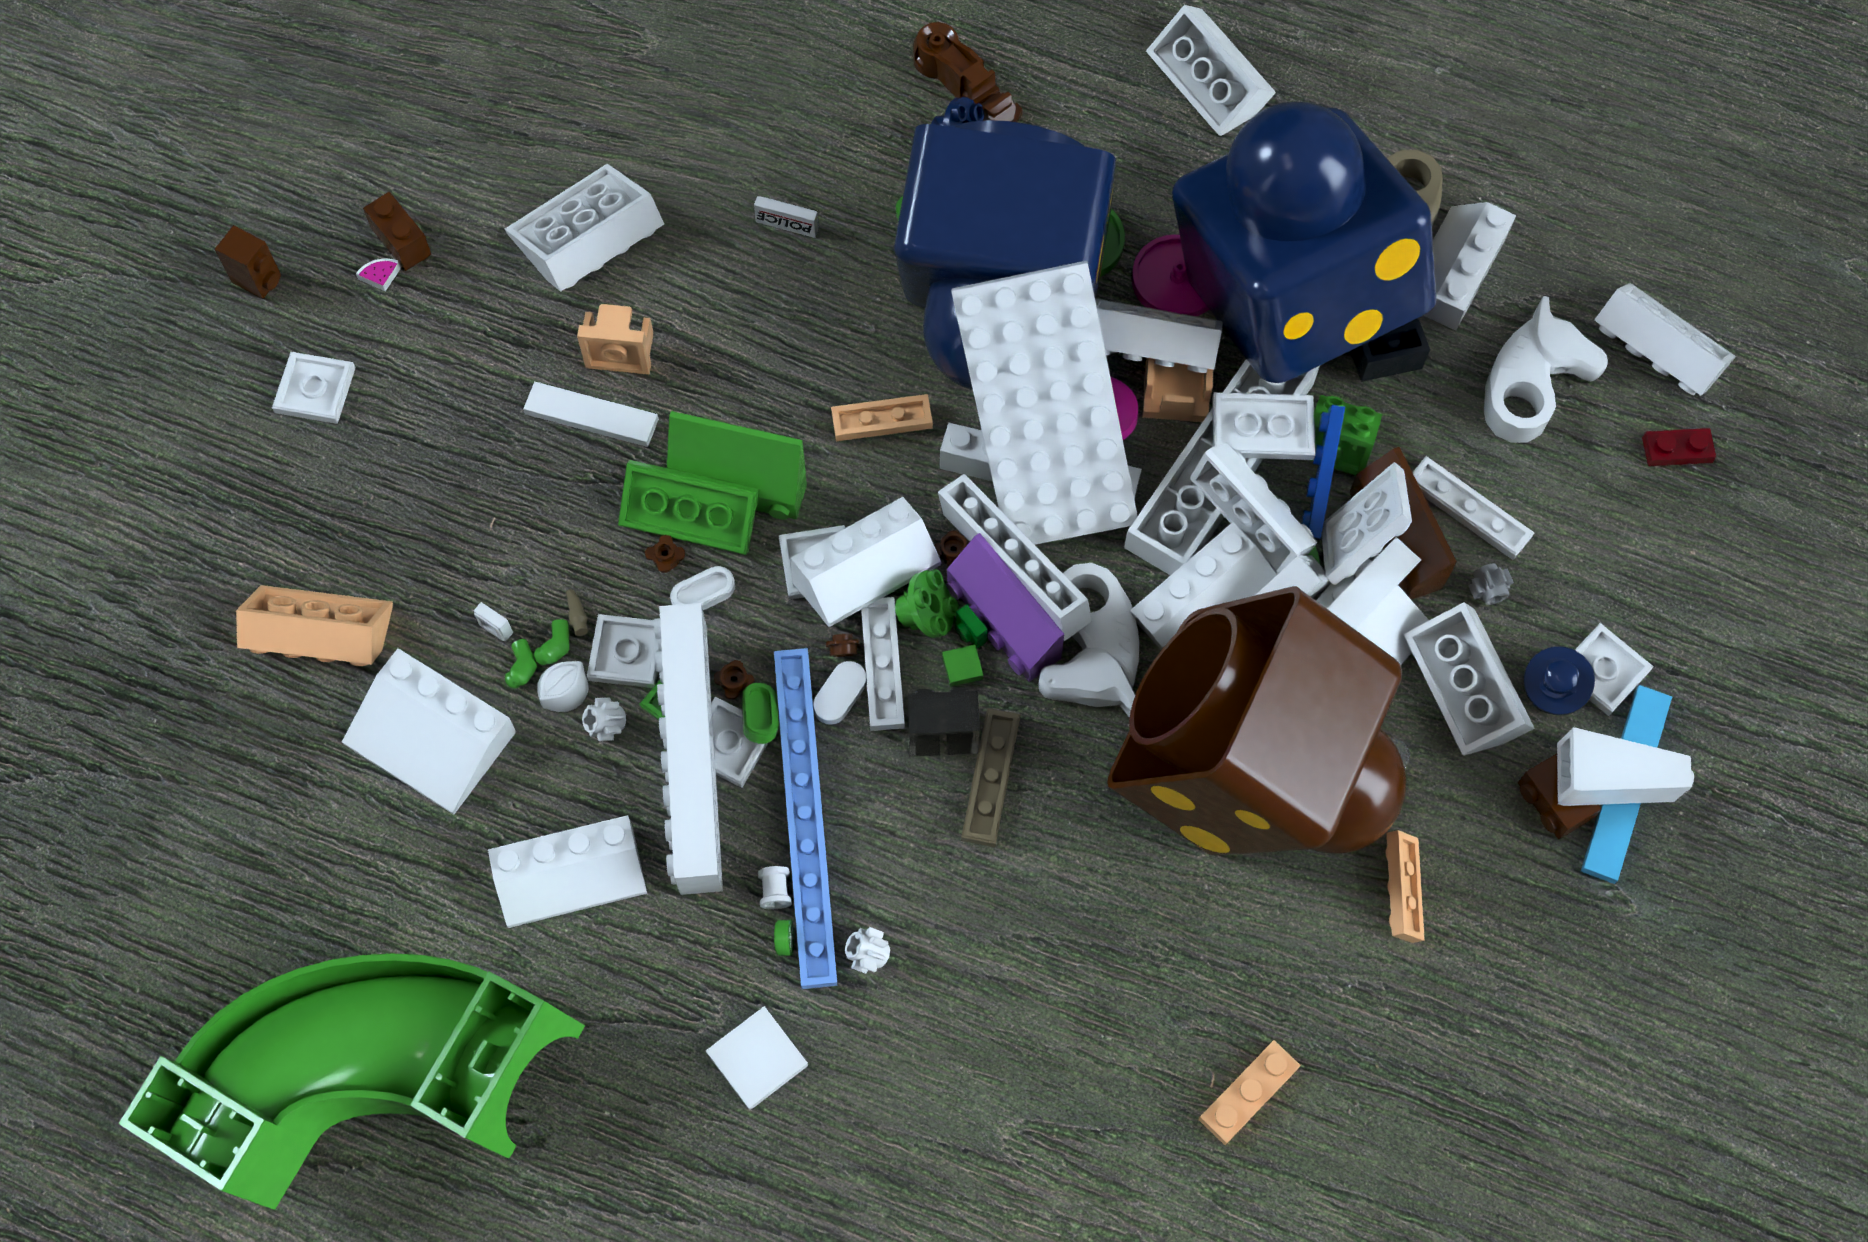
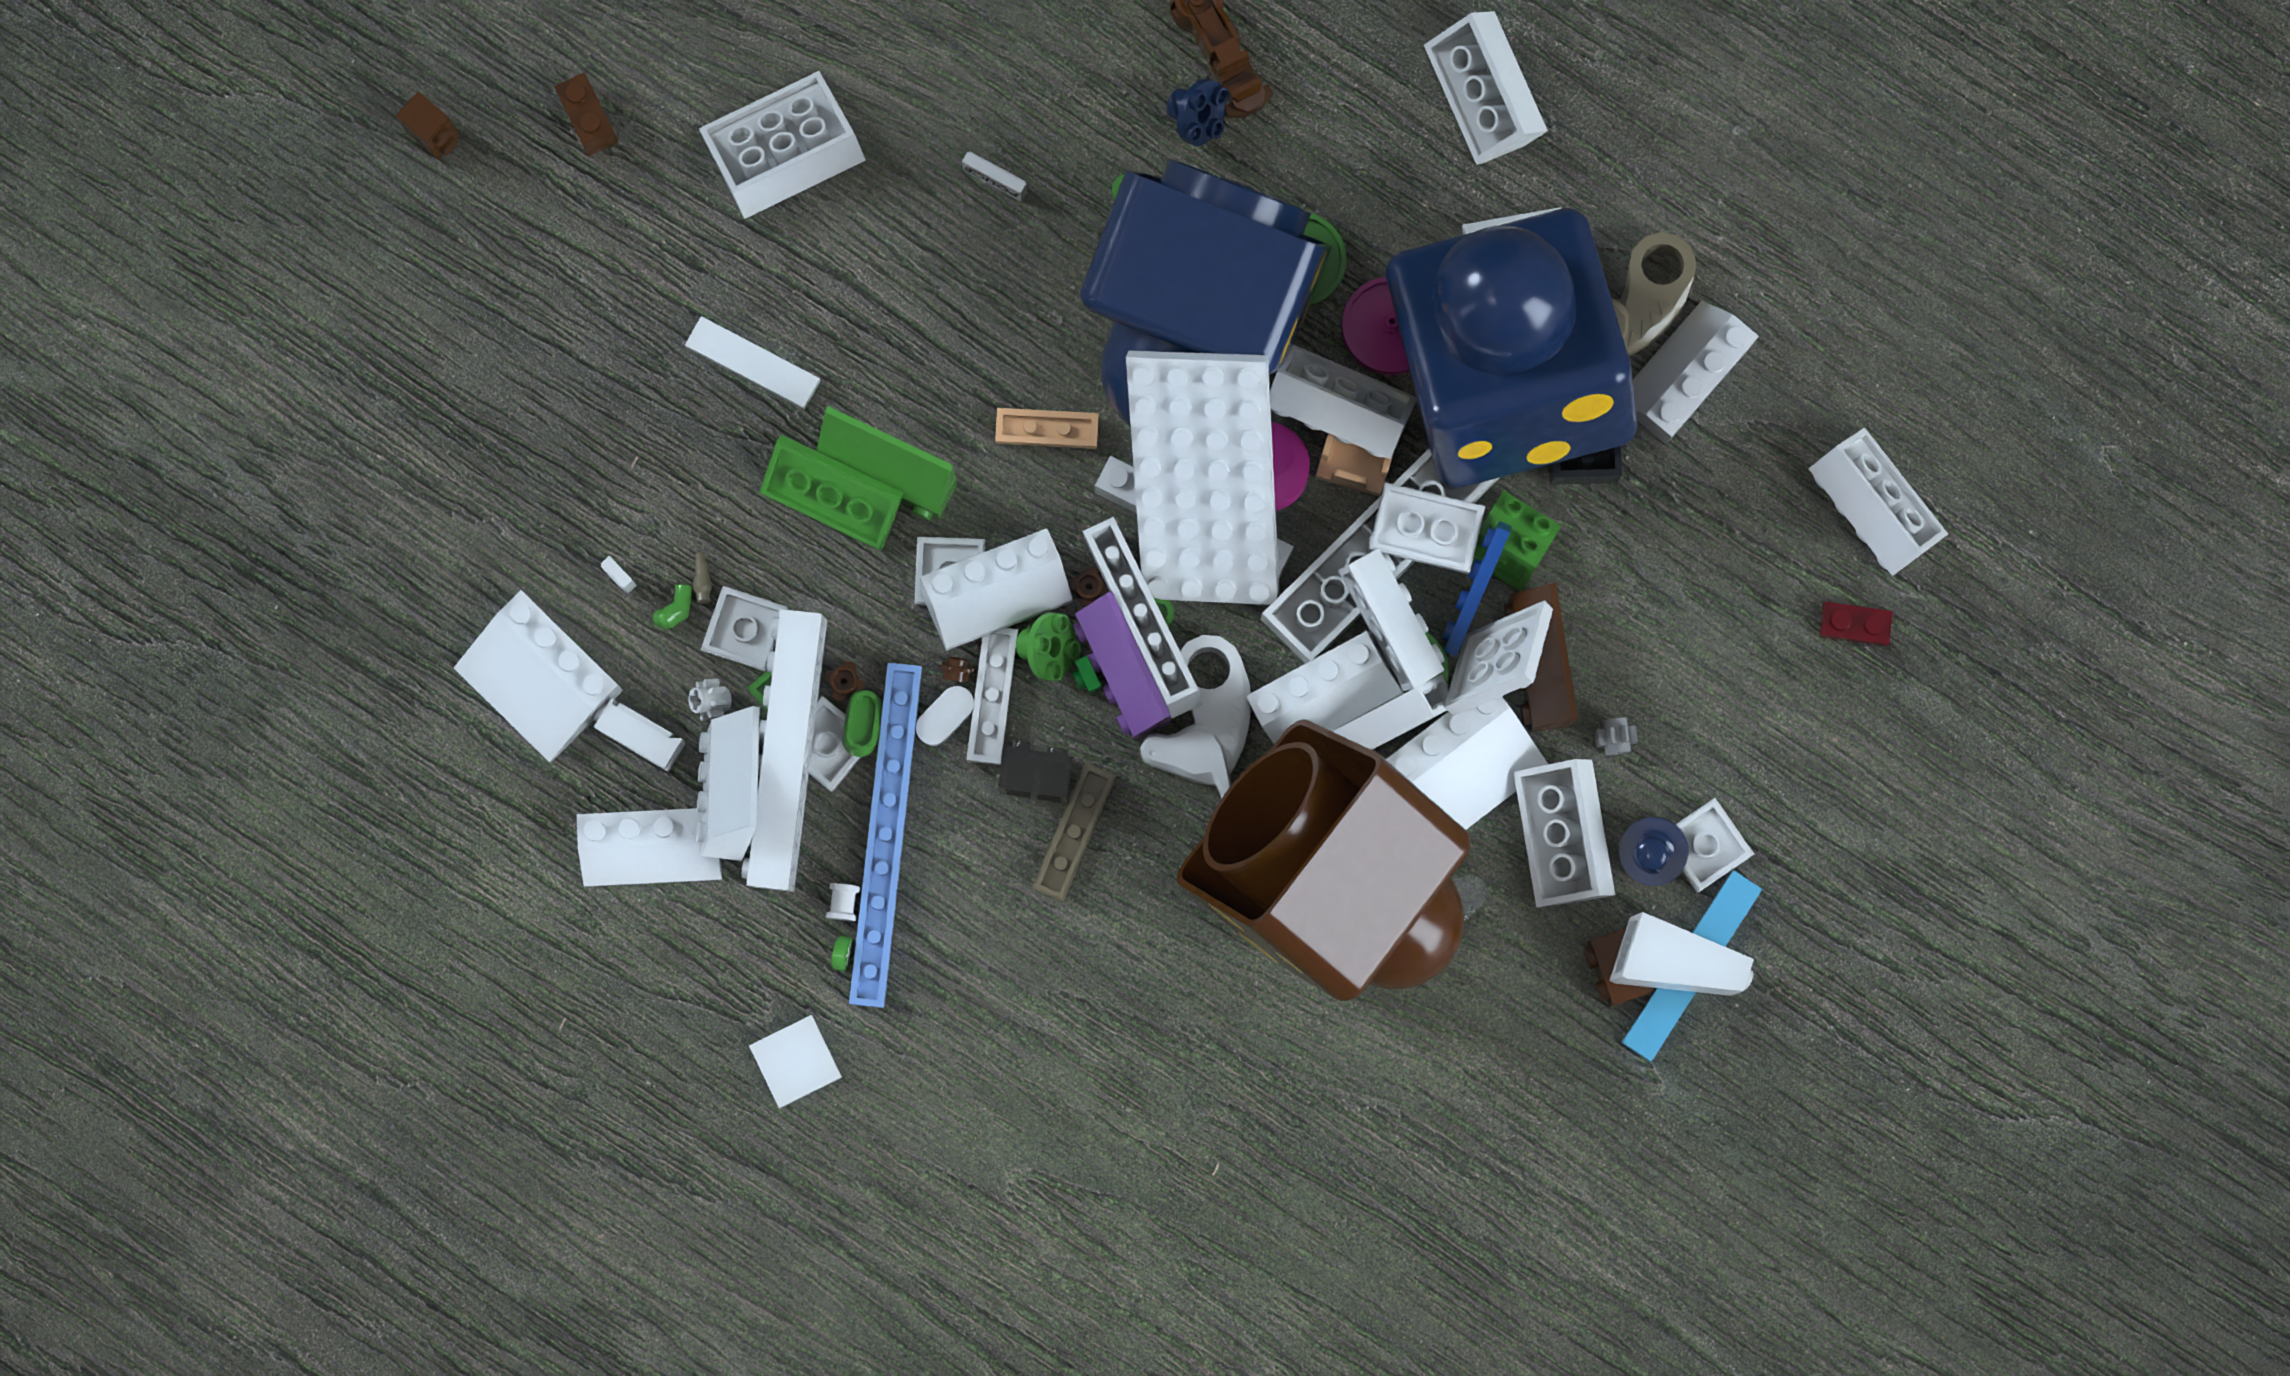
camera: 10 degrees right, 15 degrees up
(313, 387) = (476, 275): white tile -> none
(313, 625) = (443, 541): light nougat slope -> none
(339, 1047) = (411, 977): bright green piece -> none
(379, 272) = (561, 155): tile -> none
(524, 666) = (641, 627): bright green arm -> none
(538, 766) = (638, 734): none -> white window
(563, 686) = (676, 654): white hat -> none
(612, 344) = (790, 292): light nougat panel -> none
(638, 787) = (729, 784): none -> white slope
(668, 562) = (790, 531): reddish brown plate -> none
(705, 588) = (830, 580): white tile -> none
(867, 950) = (918, 982): white gear -> none
(962, 665) = (1071, 712): bright green tile -> none
(1249, 1092) = (1246, 1188): light nougat plate -> none
(1374, 583) = (1477, 732): white tile -> none
(1405, 886) = (1444, 1025): light nougat plate -> none
(1471, 509) = (1621, 646): white tile -> none
(1524, 369) = (1740, 488): white animal -> none

